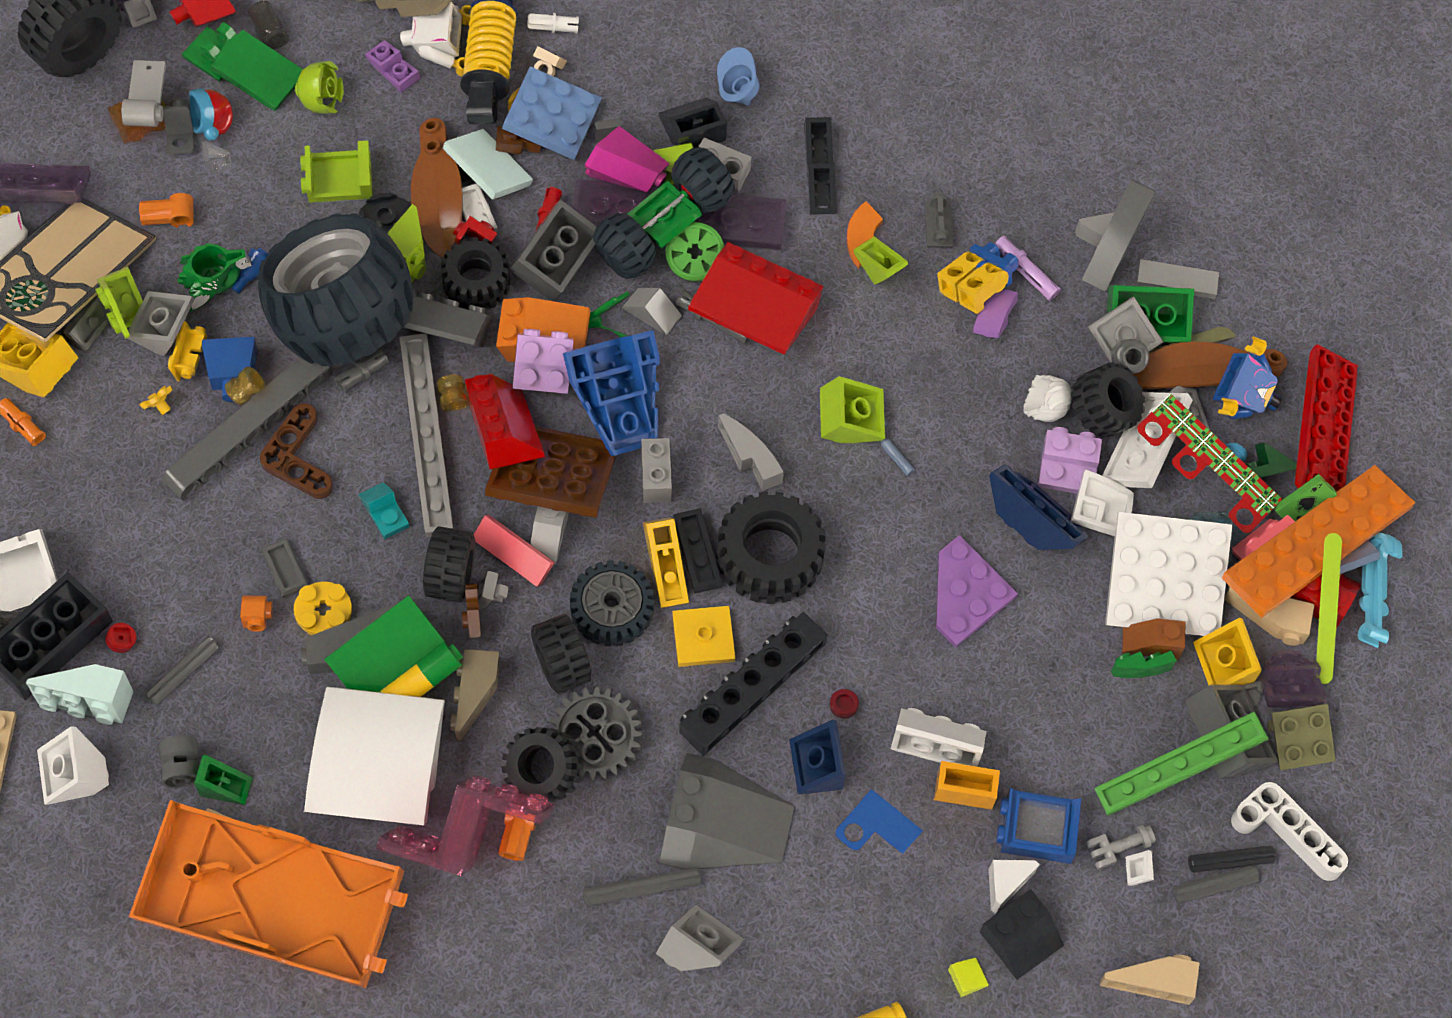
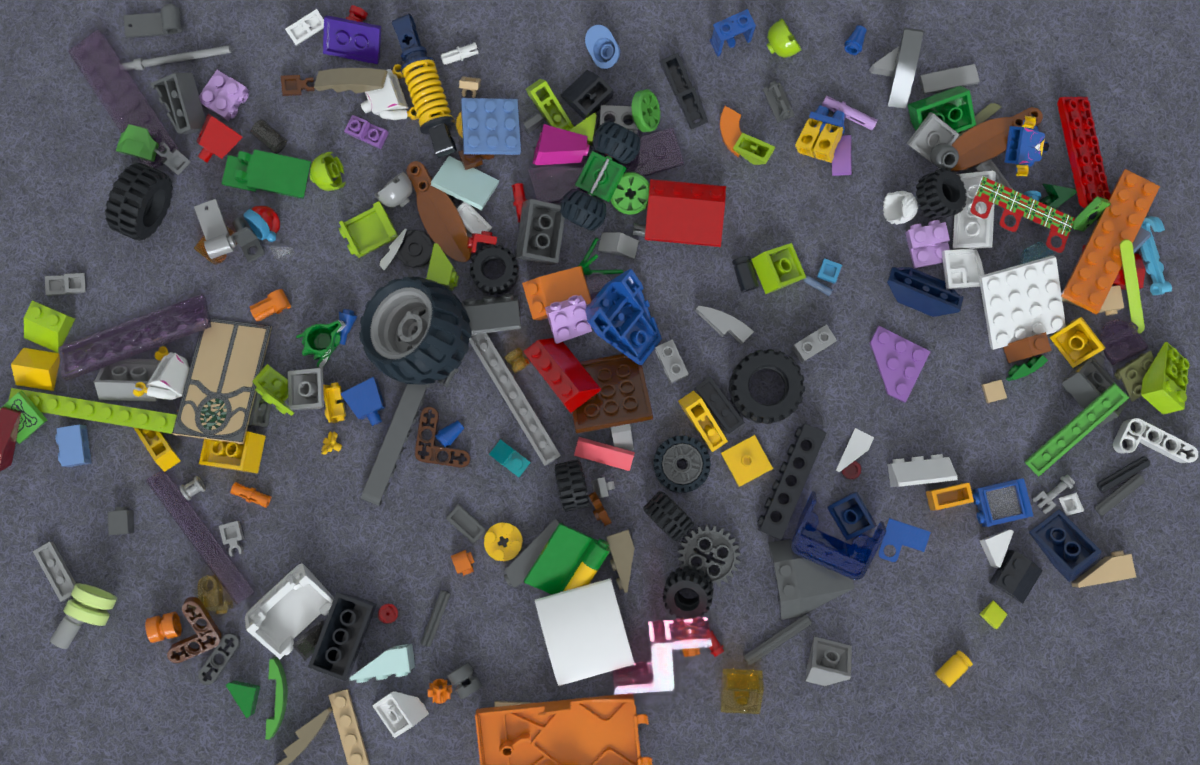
camera: 15 degrees left, 20 degrees up
(138, 762) = (439, 691): none -> orange gear
(222, 782) = (497, 681): green slope -> none
(242, 387) = (384, 415): clear yellow wheel -> none
(318, 447) = (449, 433): none -> blue cone
(362, 203) = (393, 250): none -> white sticker
(394, 139) = (395, 191): none -> light grey cylinder
(548, 856) = (716, 648): none -> red pin
(557, 933) = (741, 691): none -> clear yellow slope
(637, 113) = (548, 105): none -> lime slope
(742, 768) = (831, 552): none -> clear blue windscreen
(758, 165) = (645, 110): none -> bright green wheel
(804, 404) = (745, 273): none -> black piece
(859, 521) = (814, 343): none -> light grey brick
(864, 676) = (857, 446): none -> white sticker
(910, 109) = (730, 27): none -> blue window
(920, 443) = (829, 271): none -> dark azure plate
(973, 152) = (781, 40): none -> lime cylinder
(1070, 189) = (855, 42): none -> blue cone
(1087, 679) = (994, 391): none -> tan tile
(1110, 921) = (1065, 545): none -> dark blue slope
(1261, 536) = (1072, 252): coral bracket -> none
(1336, 751) = (1166, 381): none -> lime slope

